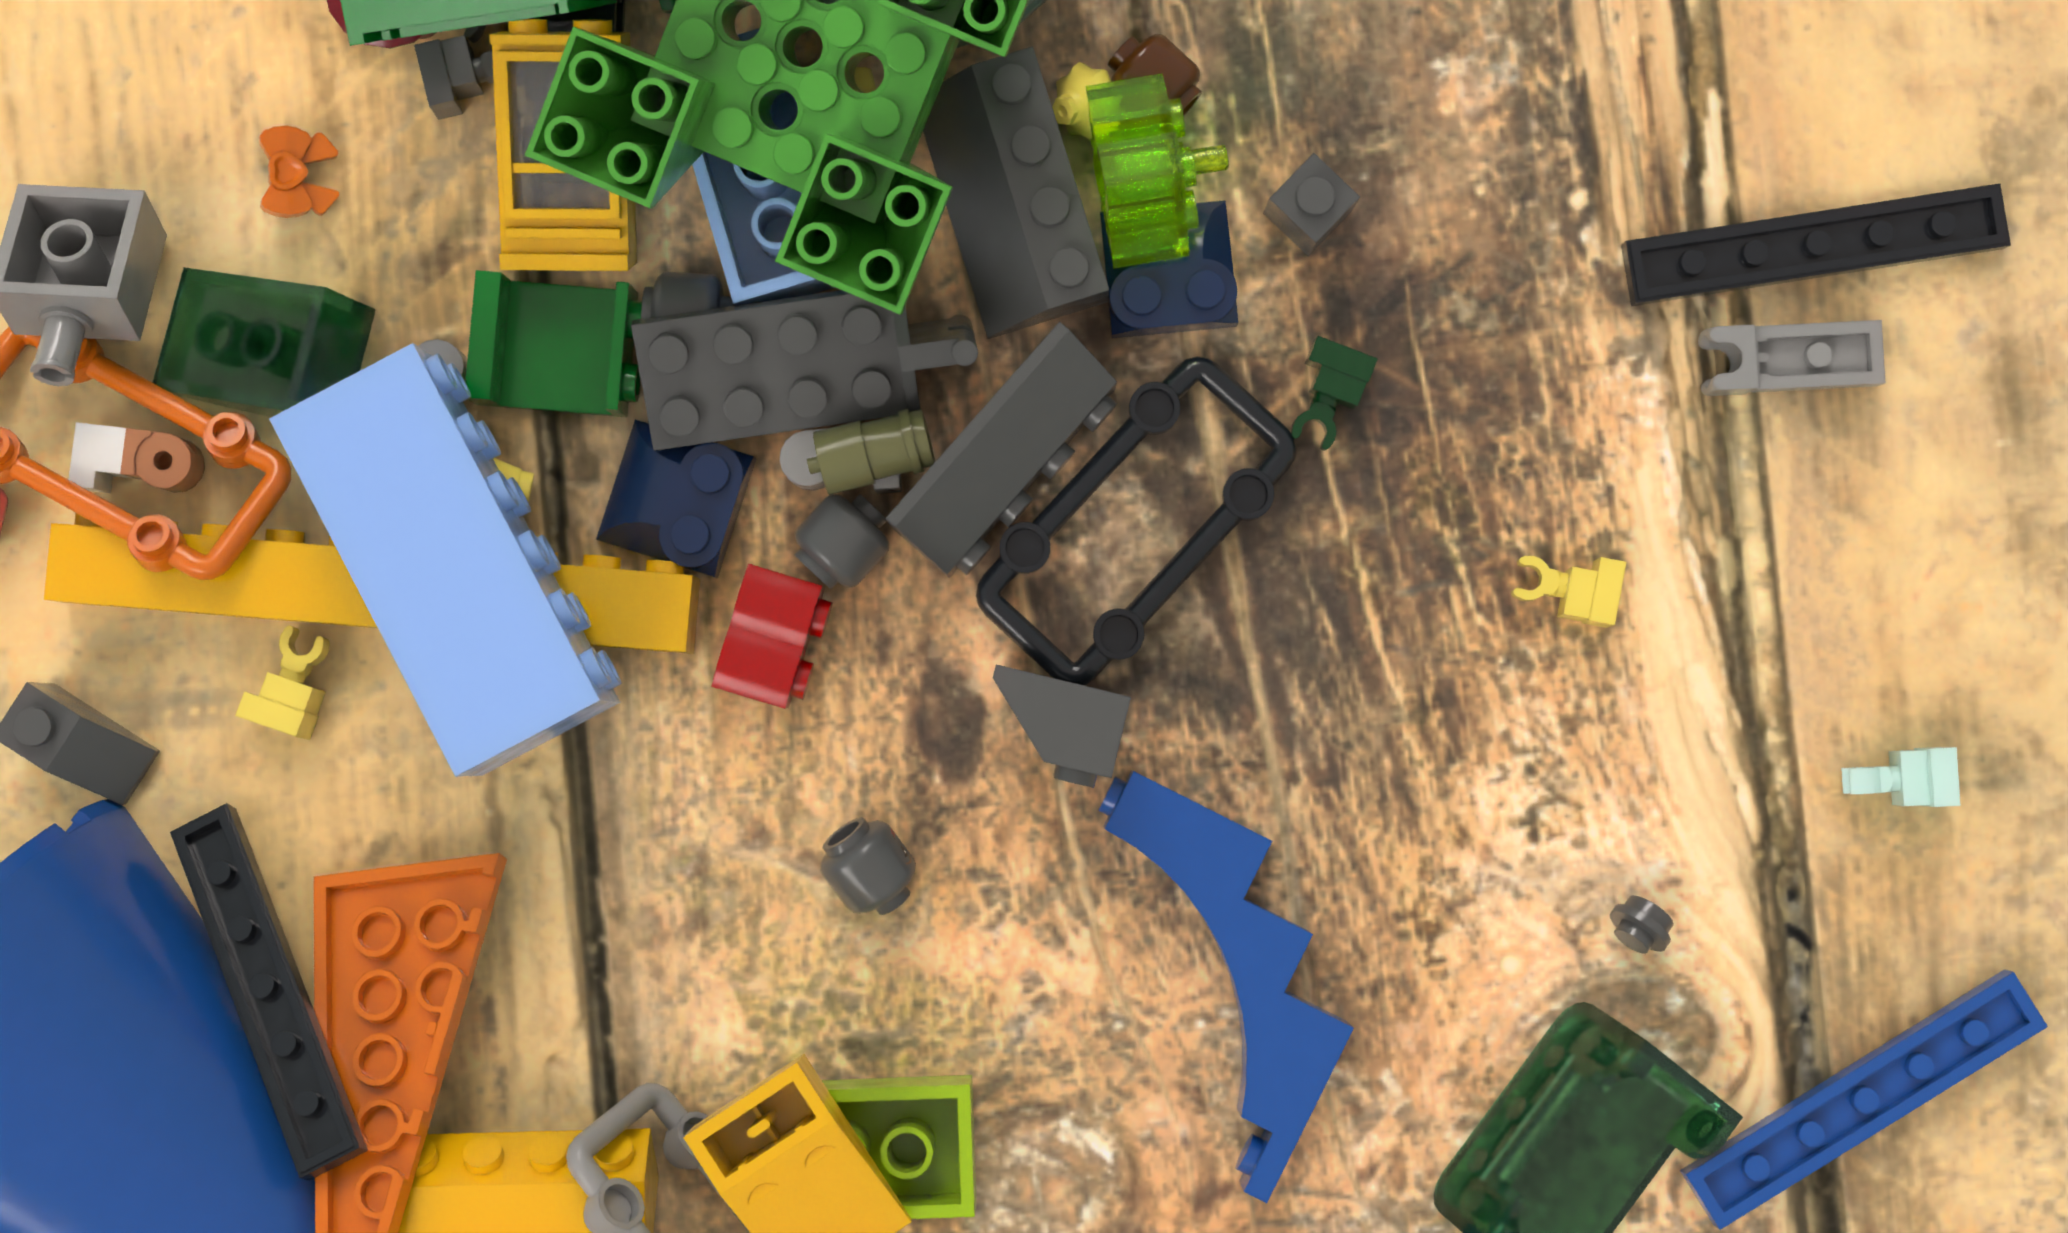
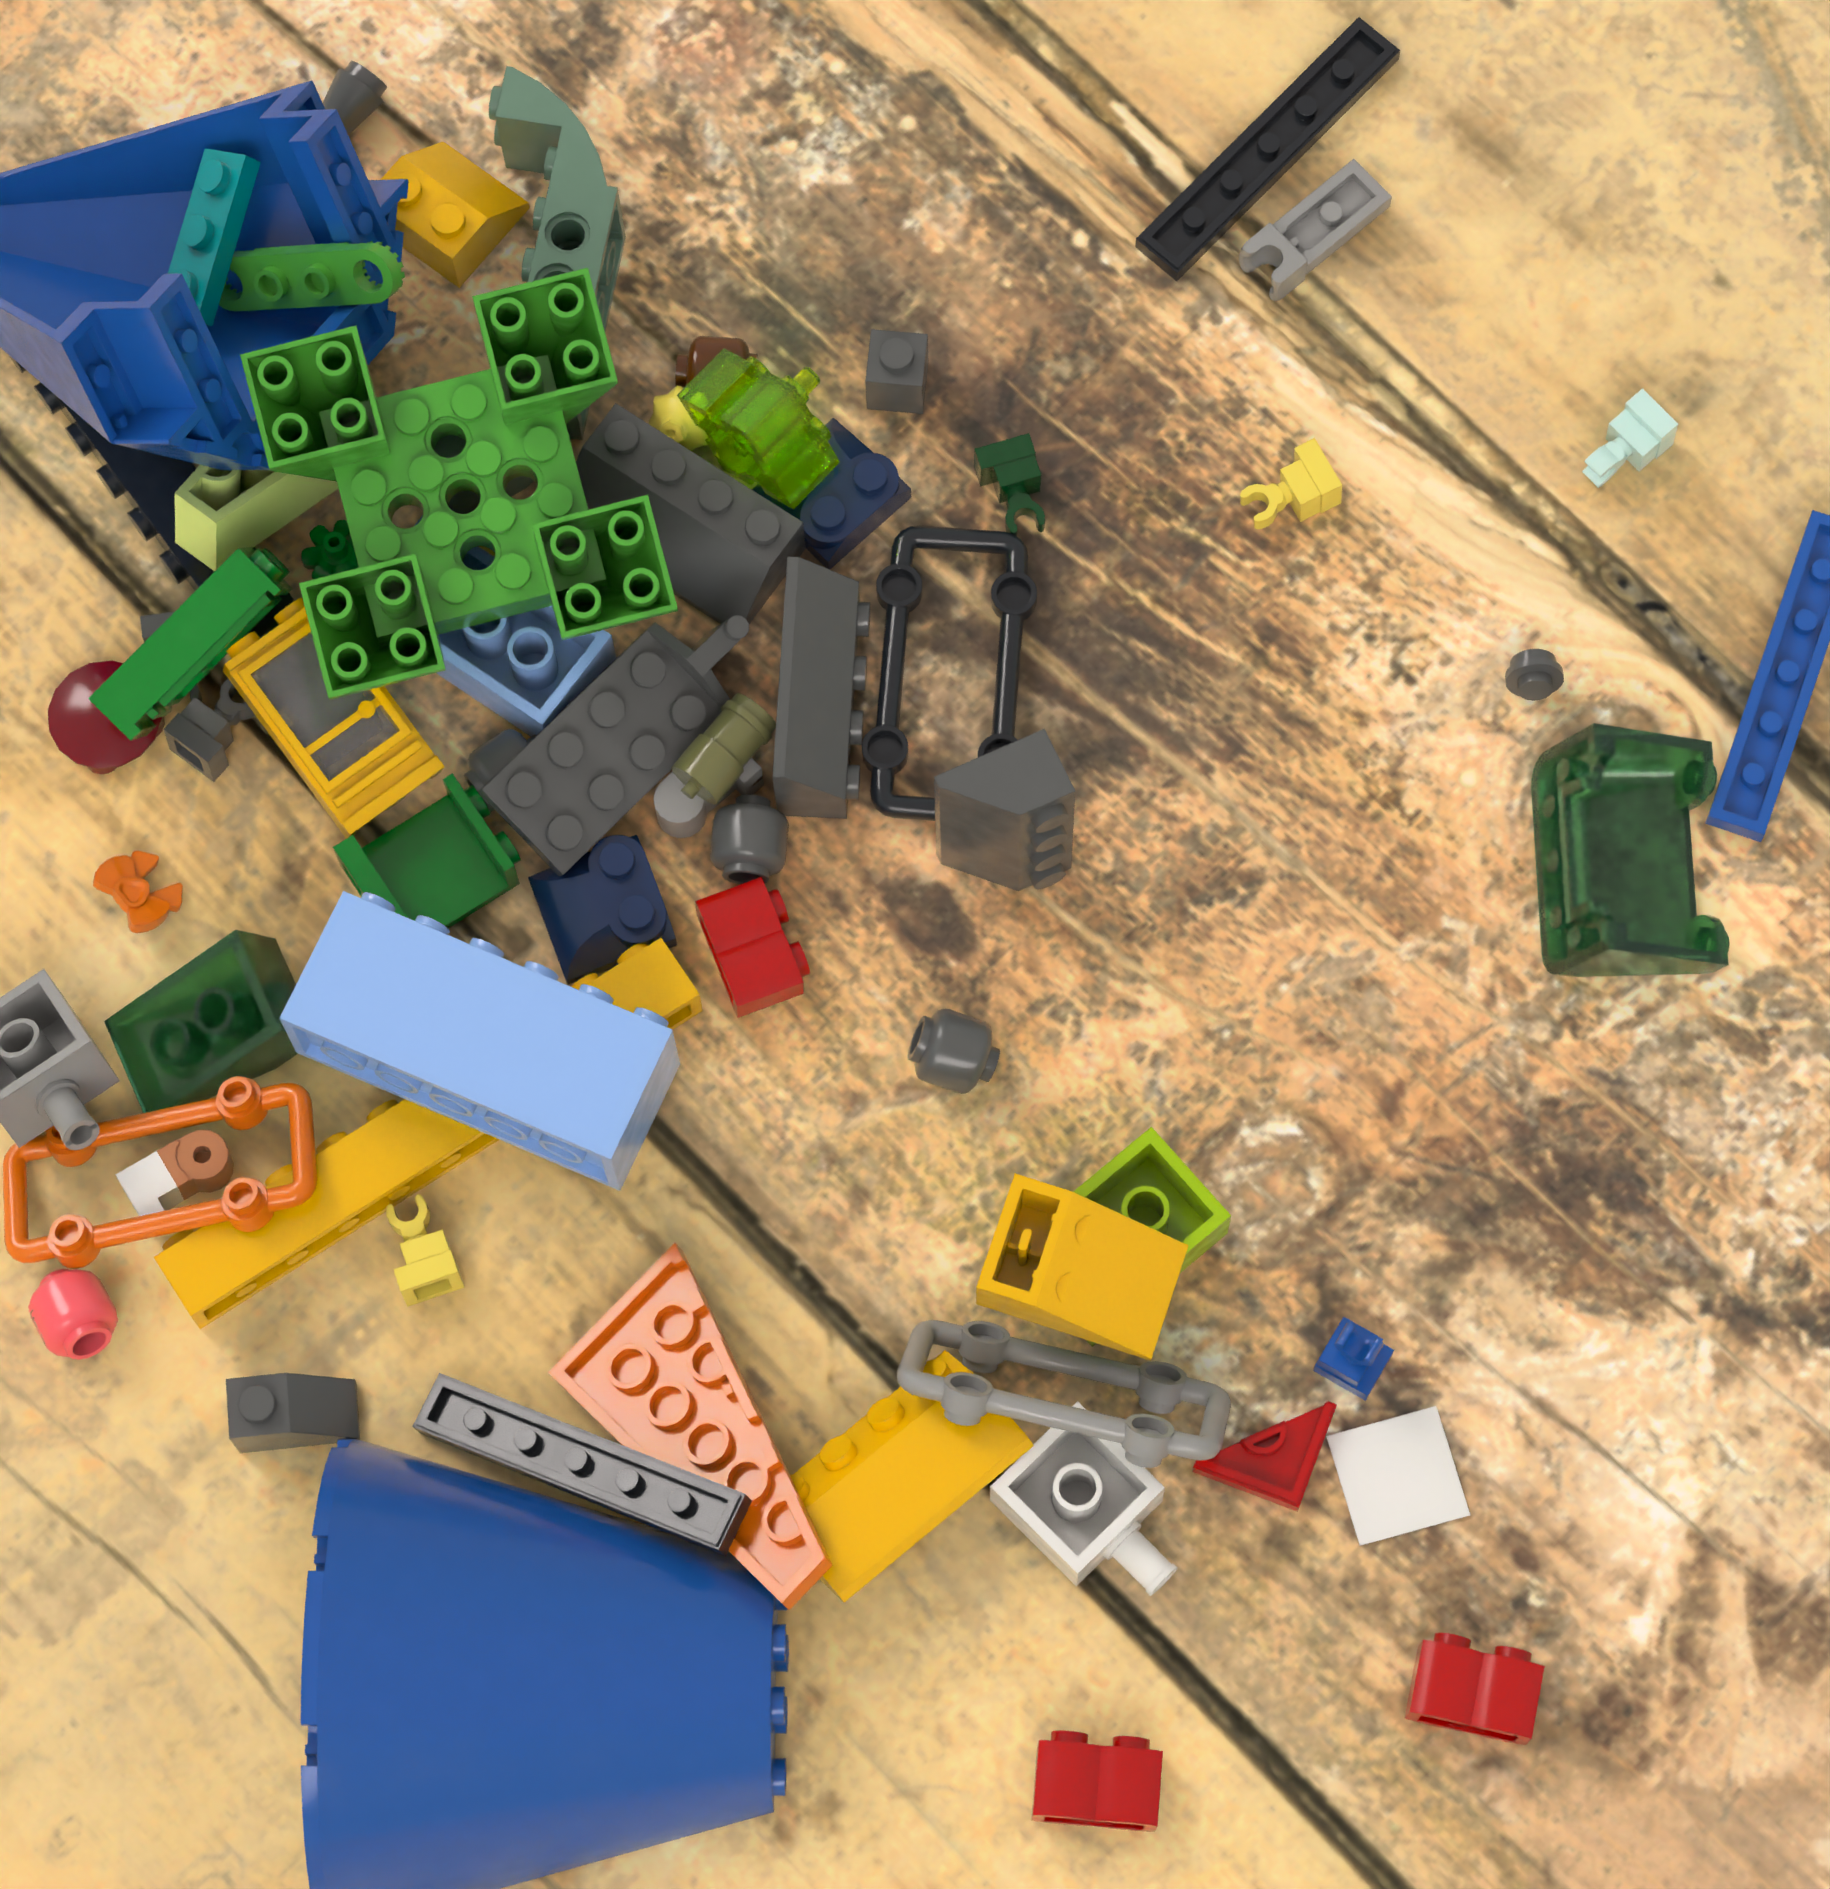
camera: 40 degrees left, 15 degrees down
(1285, 1039) = (1346, 939): blue arch -> none

